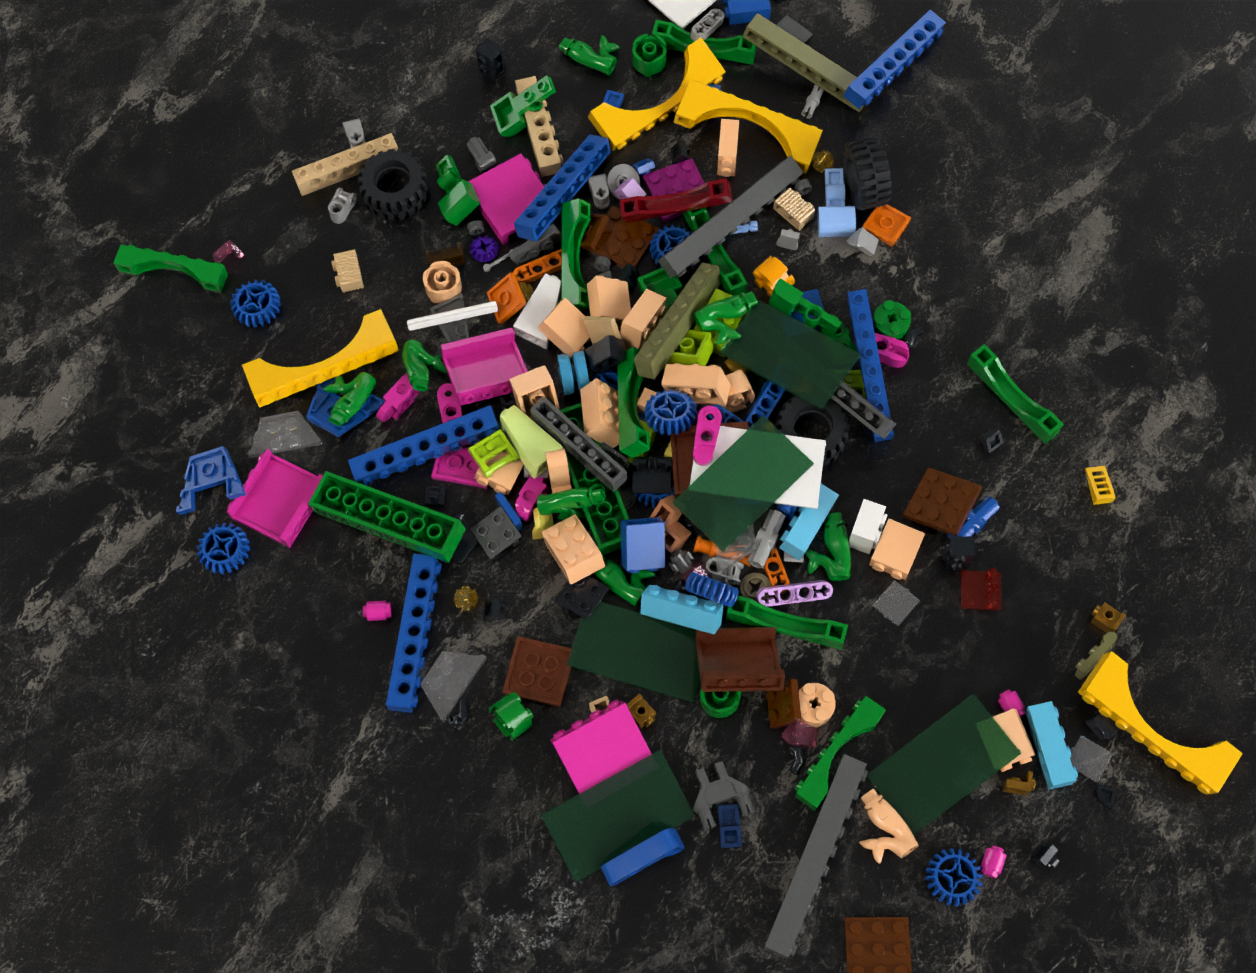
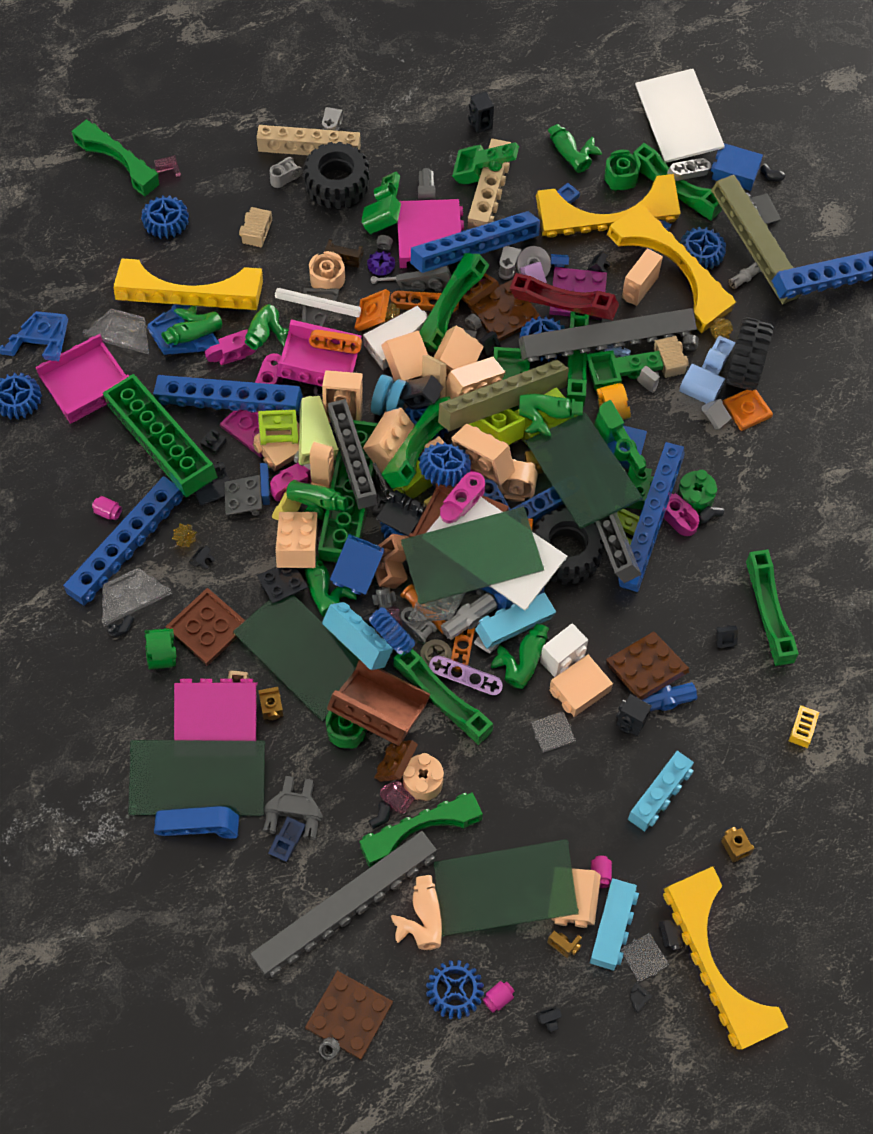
camera: 25 degrees right, 5 degrees down
(485, 342) = (349, 339): none -> orange beam
(748, 248) = (607, 369): none -> green plate
(768, 87) = (713, 246): none -> blue gear
(981, 589) = (636, 760): clear red hinge -> none
(1019, 606) = (660, 791): none -> medium azure brick
(1085, 666) = (721, 867): olive hinge -> none

